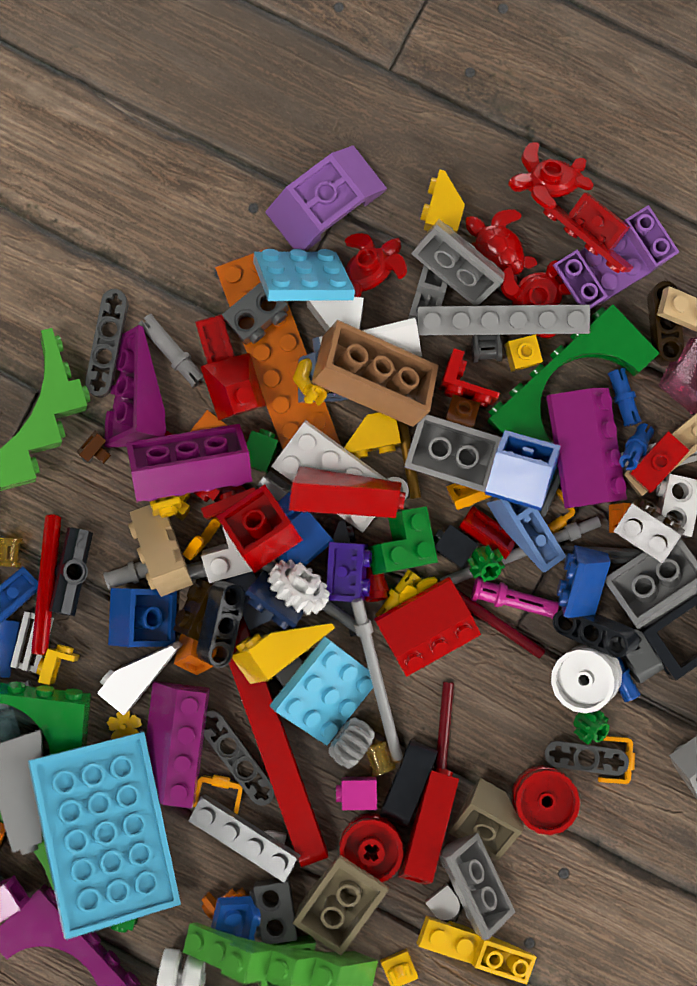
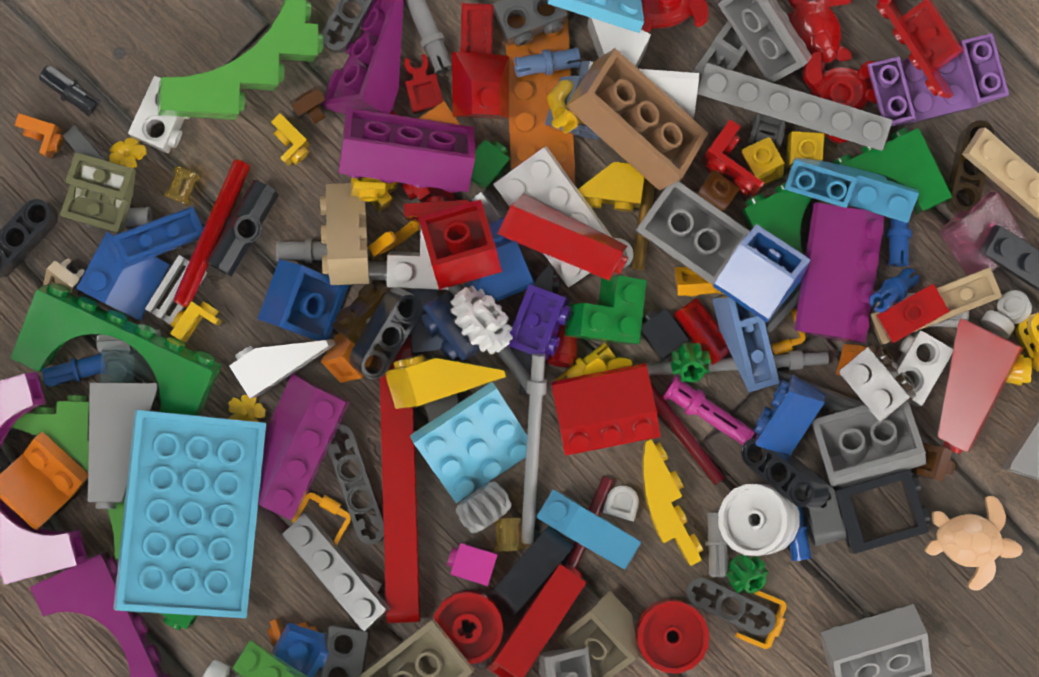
camera: 20 degrees right, 0 degrees up
(84, 480) = (289, 134): none -> yellow bracket
(186, 404) = (423, 89): none -> red plate
(283, 349) = (547, 62): none -> medium blue pin
(446, 732) = (588, 529): none -> dark azure slope
(466, 699) = (622, 503): none -> white tile
(492, 373) = (764, 161): none -> yellow bracket
(496, 679) = (660, 490): none -> yellow slope
(558, 711) = (717, 548): none -> light grey axle
(573, 372) = (851, 187): none -> dark azure slope

